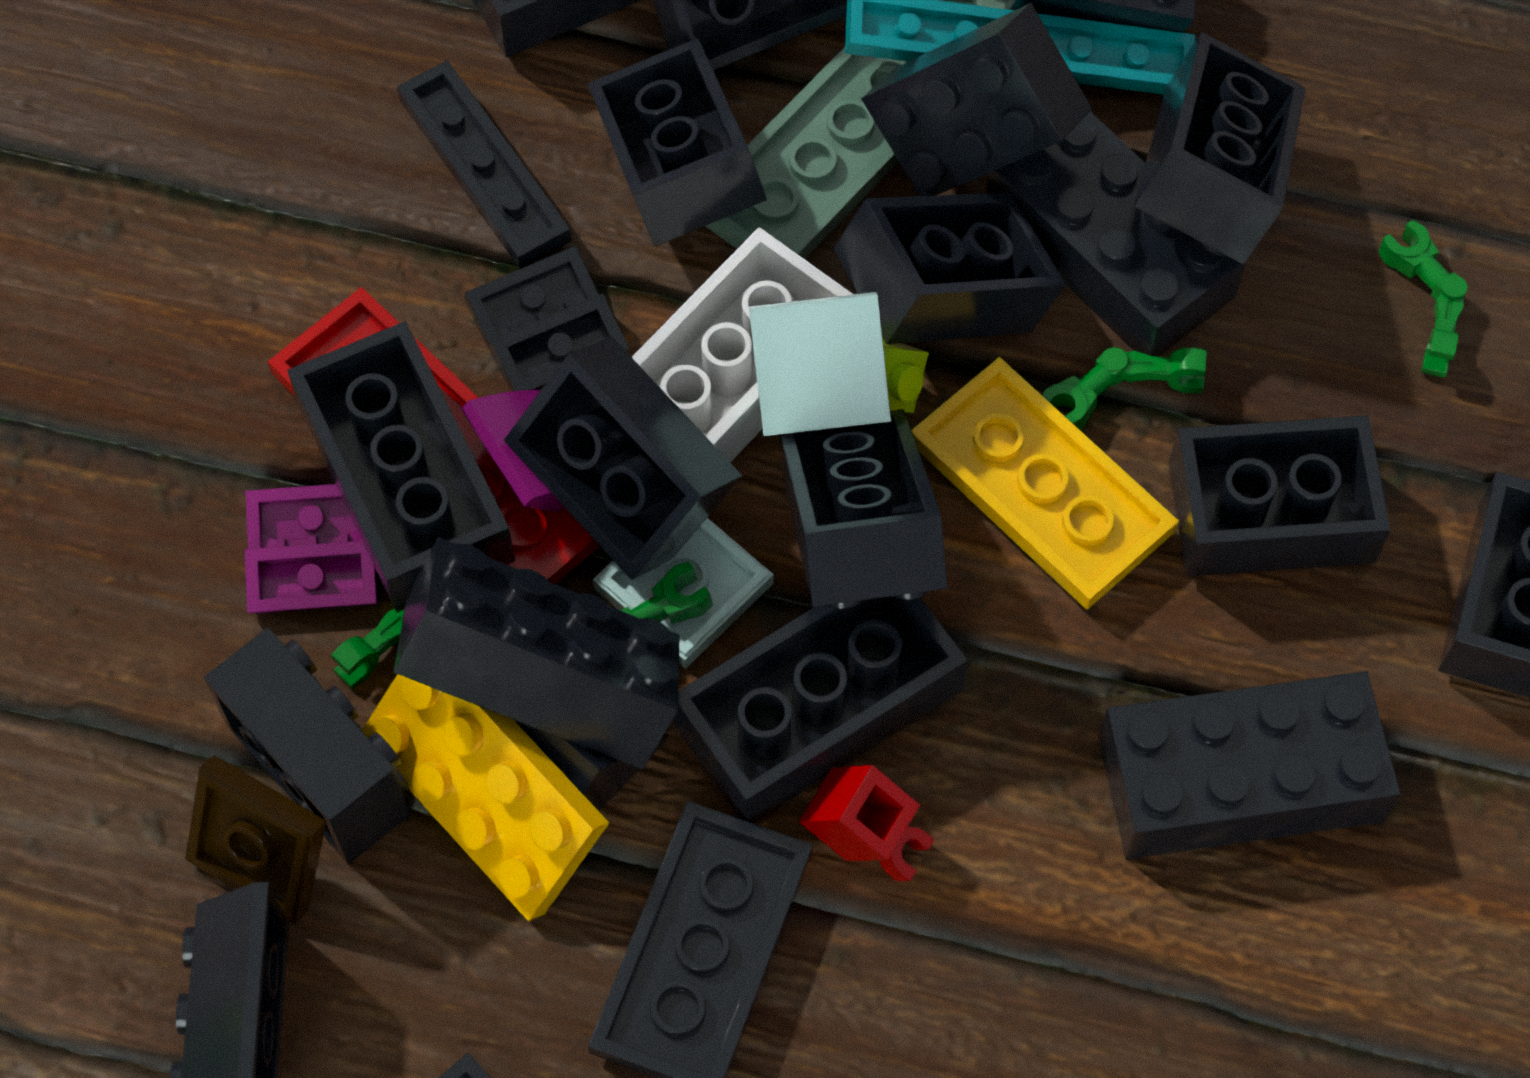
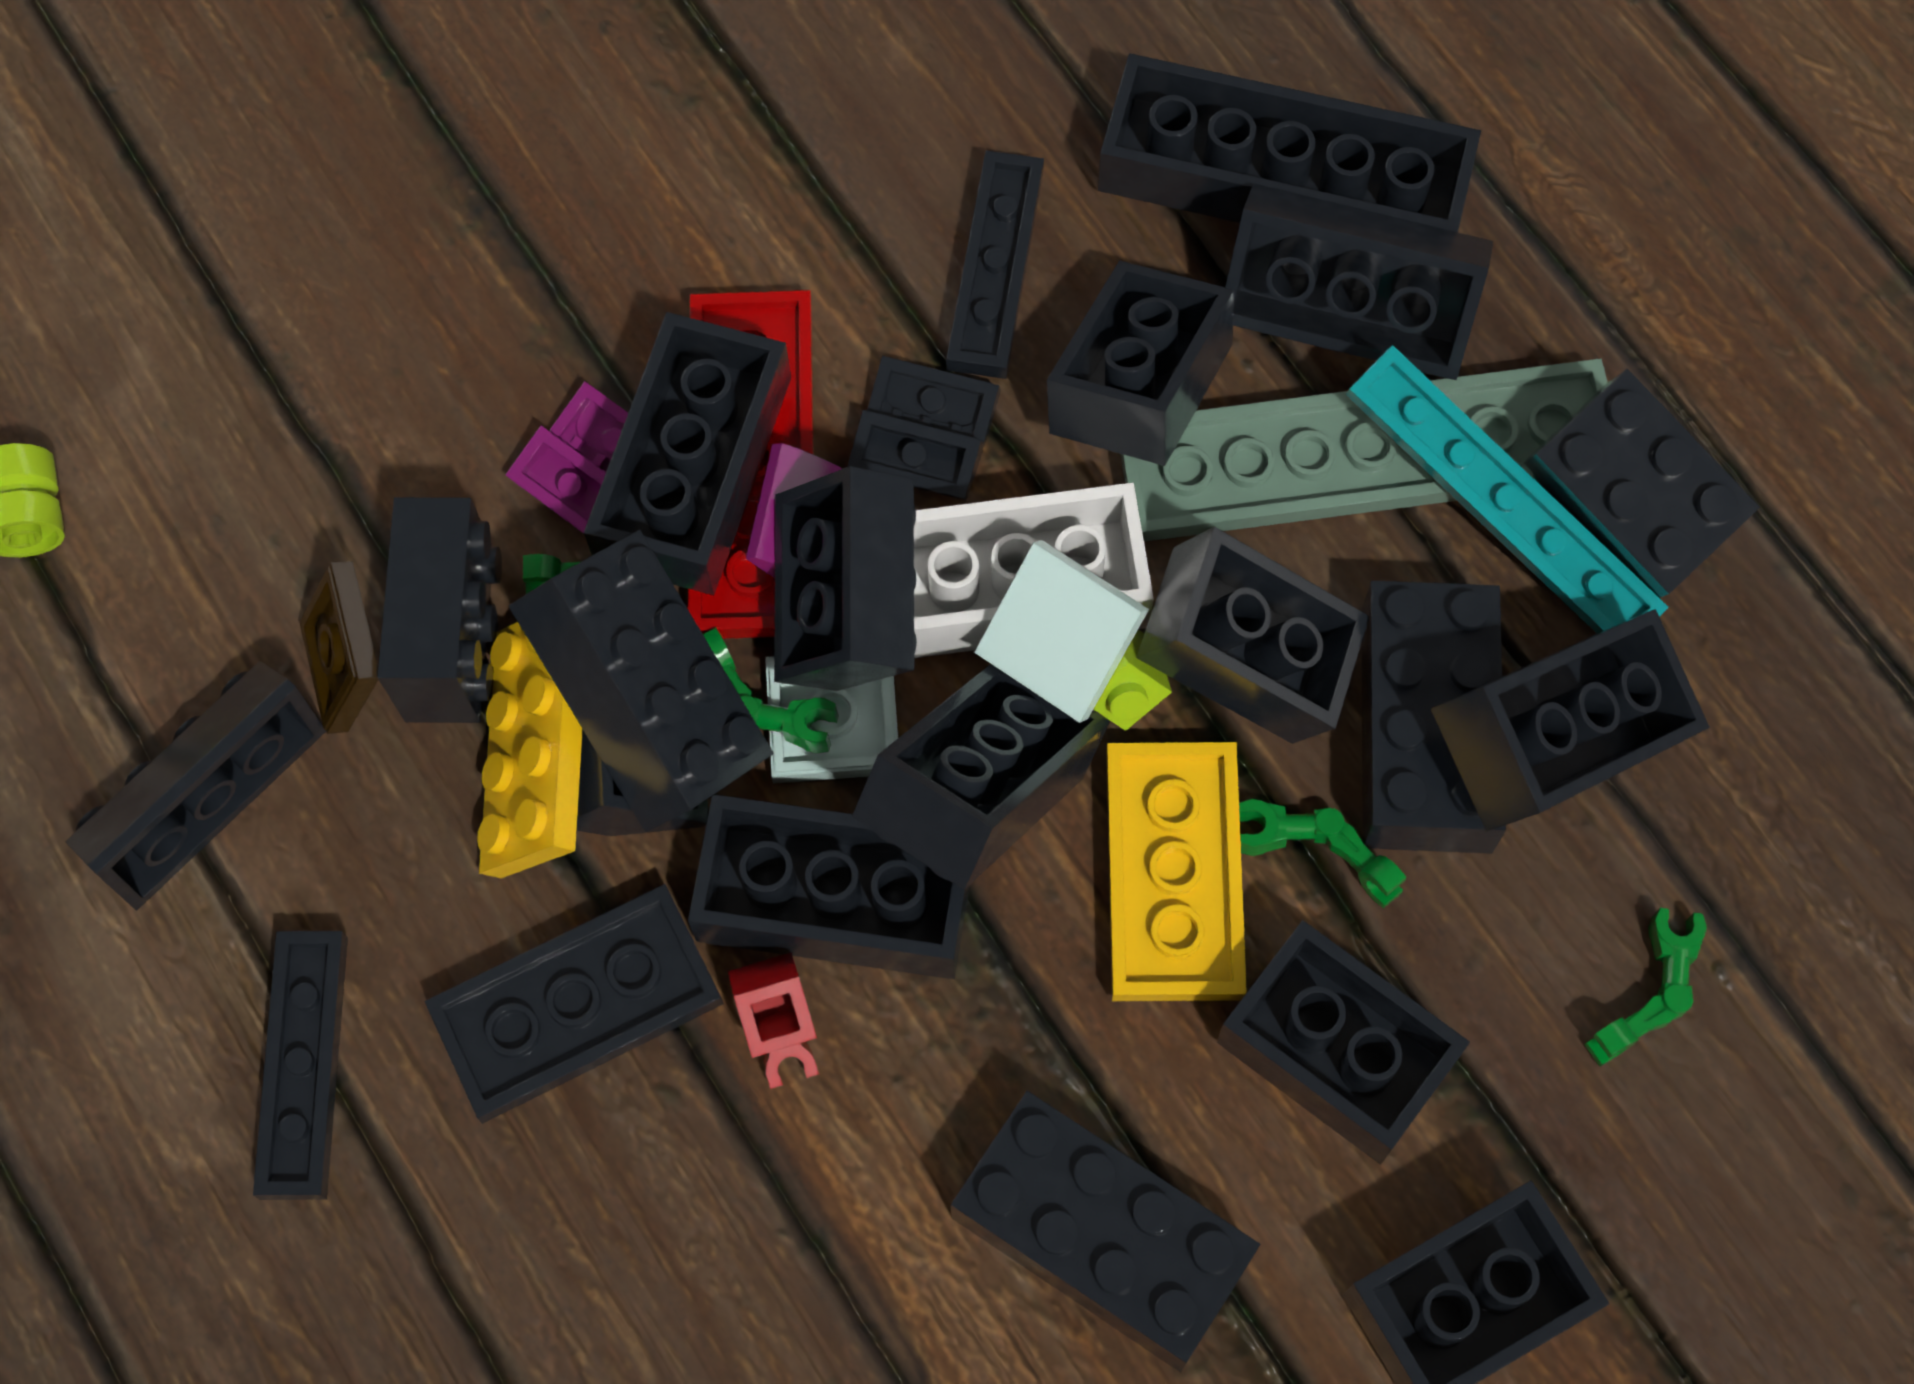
camera: 45 degrees right, 5 degrees up
(977, 103) = (1396, 521): black brick -> none

